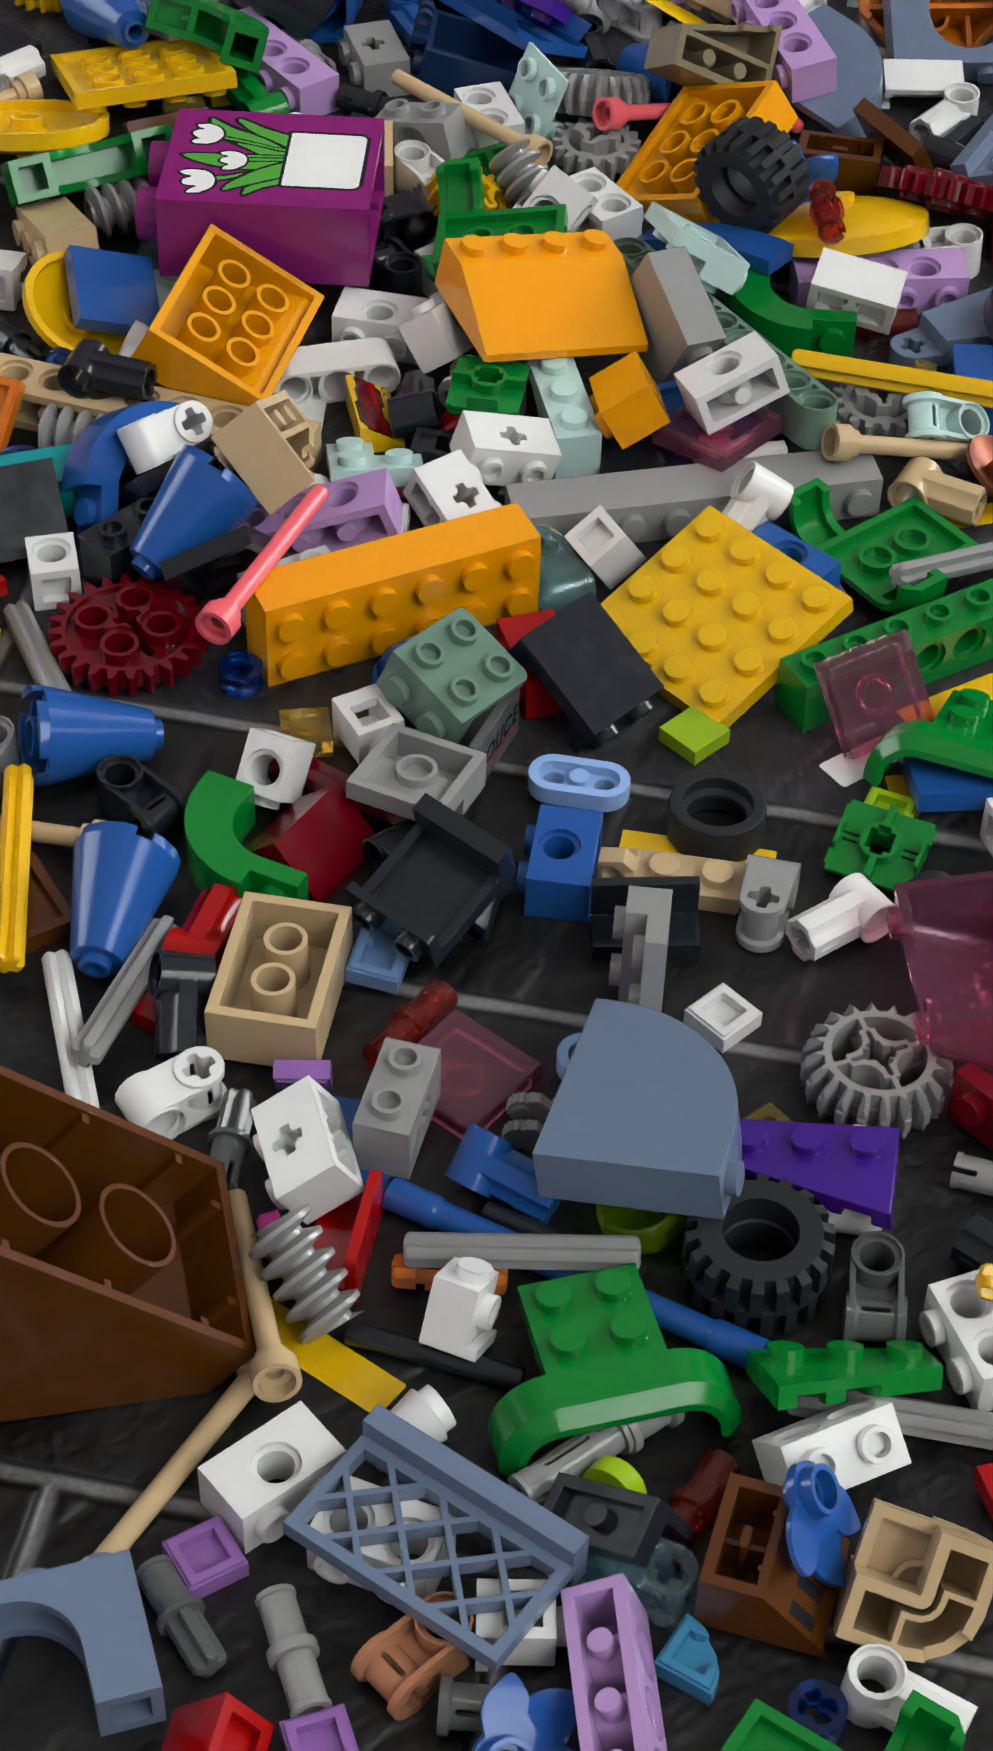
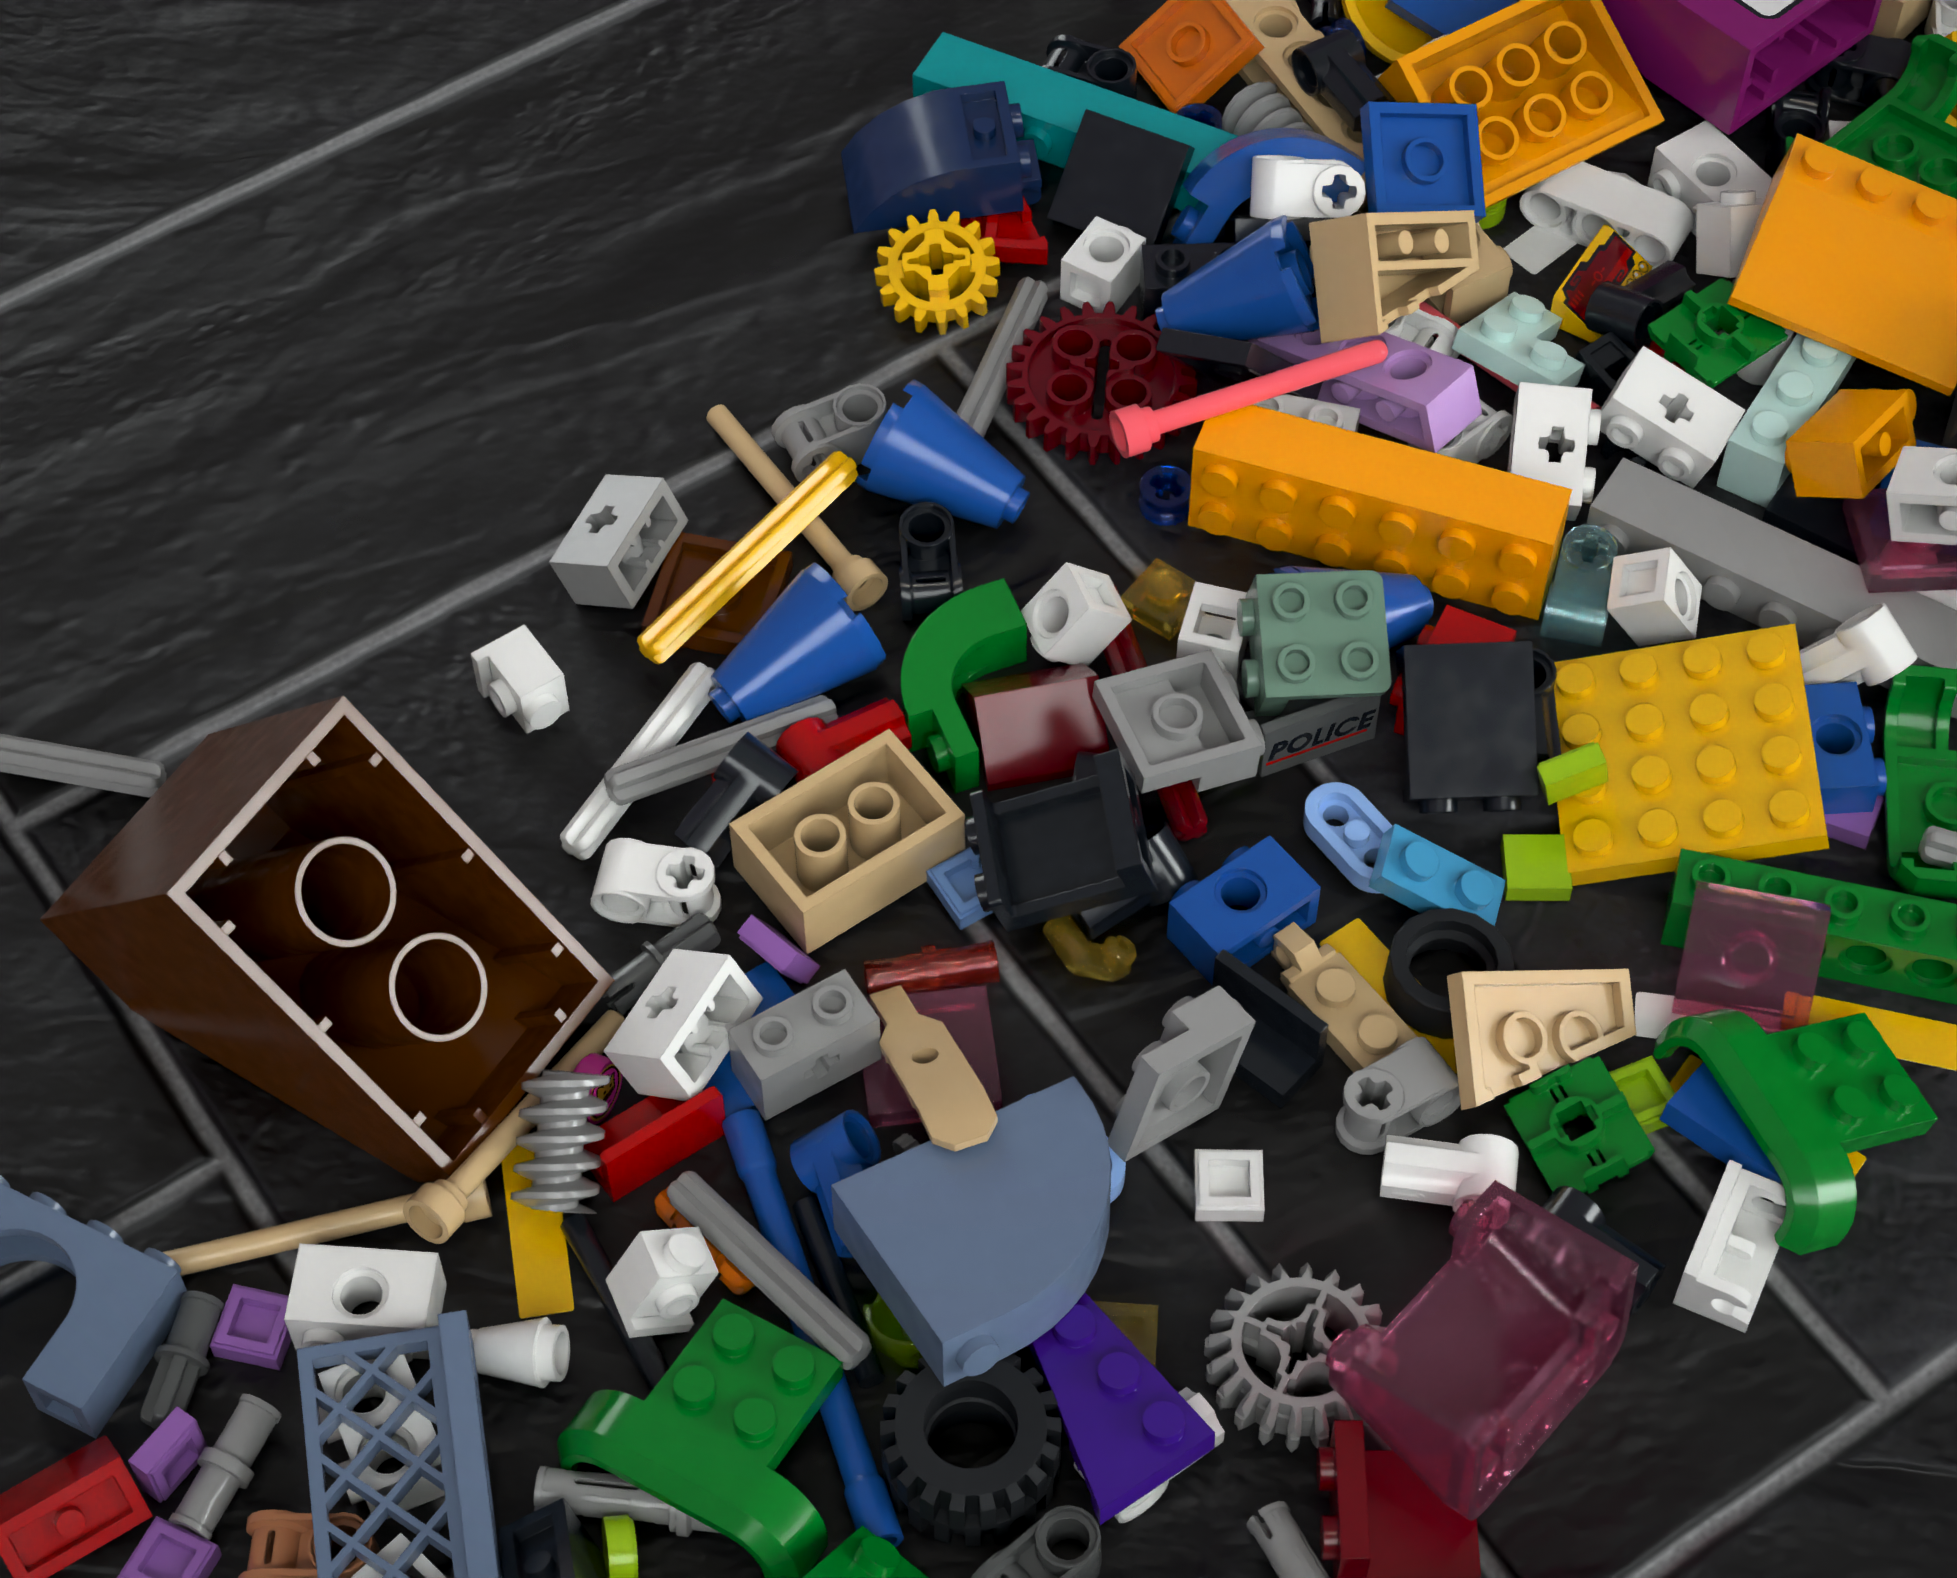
camera: 45 degrees right, 10 degrees up
(214, 376) = (1422, 157): none -> blue tile
(248, 1668) = (168, 1455): none -> medium lavender tile
(497, 954) = (1088, 959): none -> clear yellow arm
(515, 1057) = (933, 1073): none -> tan piece
(649, 771) = (1433, 877): none -> dark azure plate
(676, 657) = (1572, 772): none -> lime tile
(801, 806) = (1532, 1022): none -> tan wing

